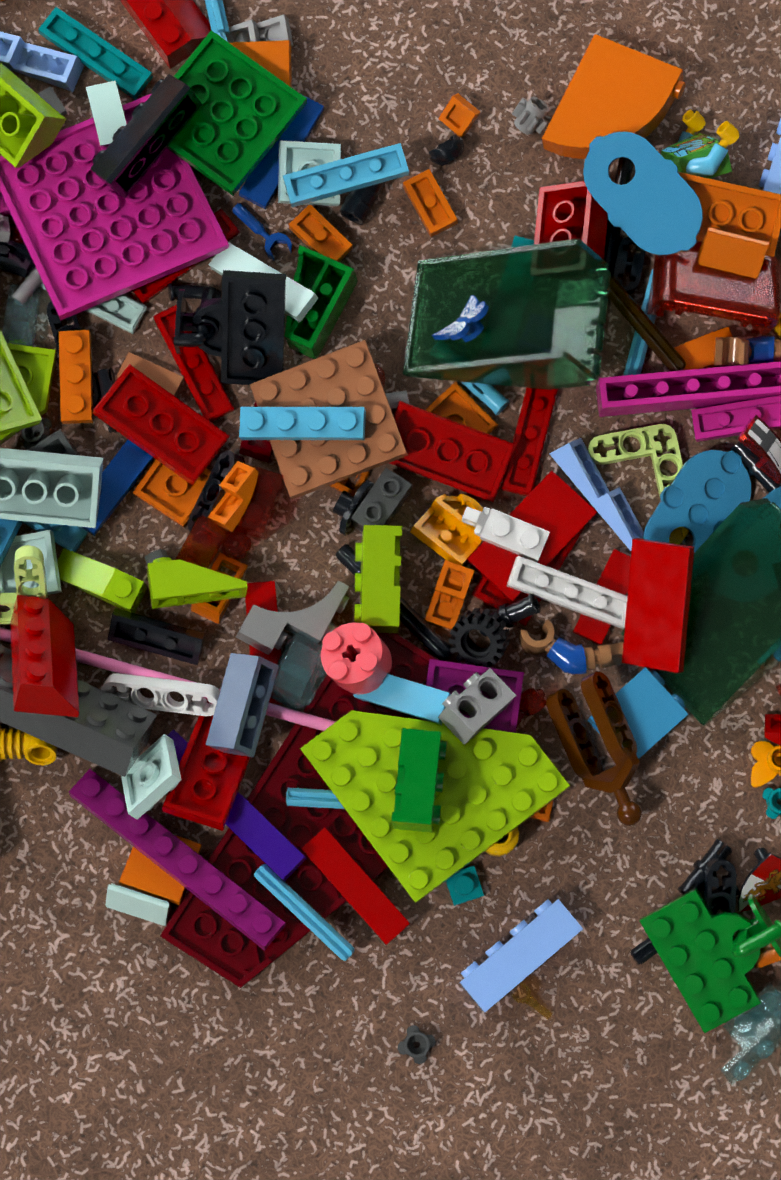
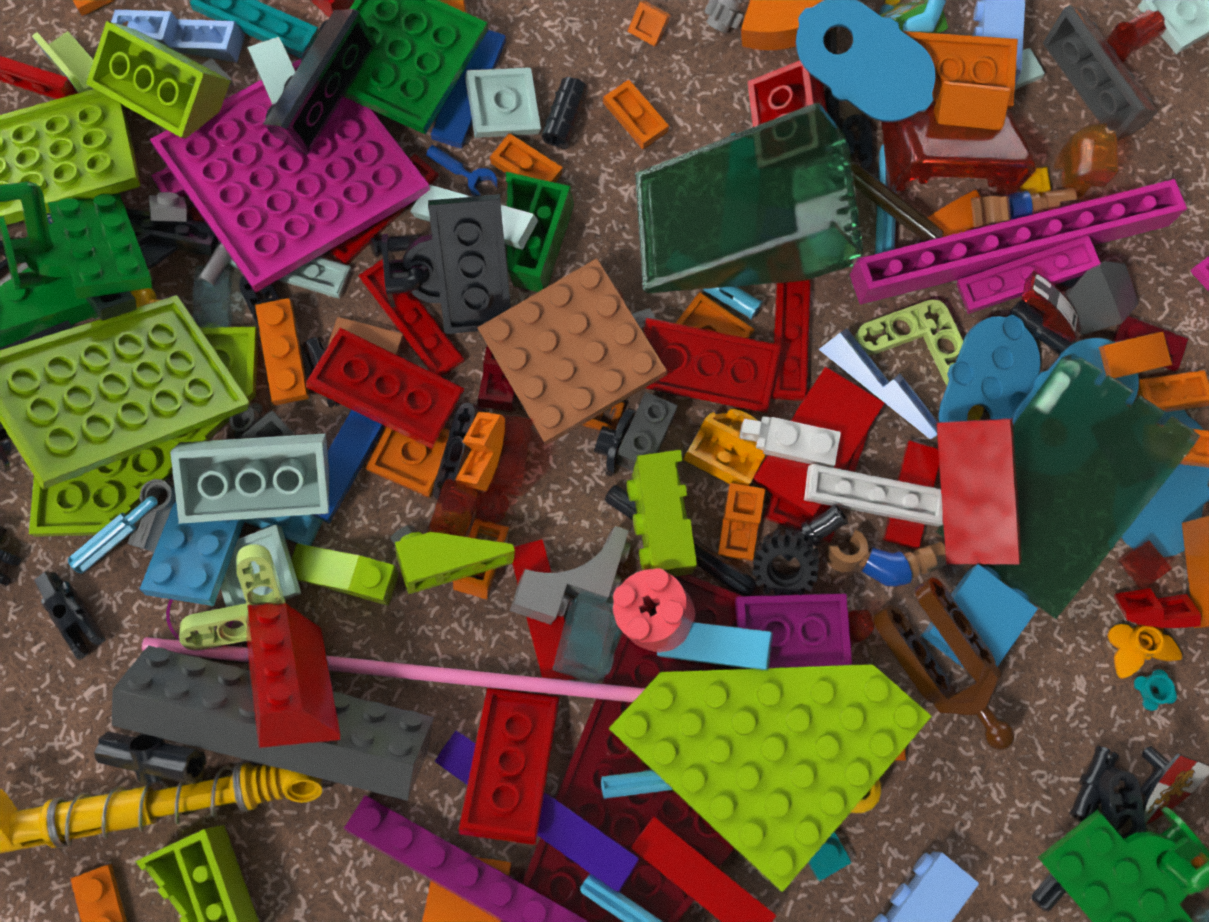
camera: 15 degrees left, 5 degrees down
(151, 777) = (439, 794): light aqua plate -> none
(156, 636) = (418, 625): black plate -> none
(162, 700) = (437, 699): white beam -> none
(242, 704) = (532, 689): sand blue brick -> none
(302, 423) = (544, 357): medium azure plate -> none
(346, 175) = (543, 94): medium azure plate -> none
(418, 780) = (760, 743): green wedge -> none
(447, 151) = (644, 60): black plate -> none
(468, 323) = (705, 224): blue animal -> none
(479, 708) = (810, 644): light grey brick -> none

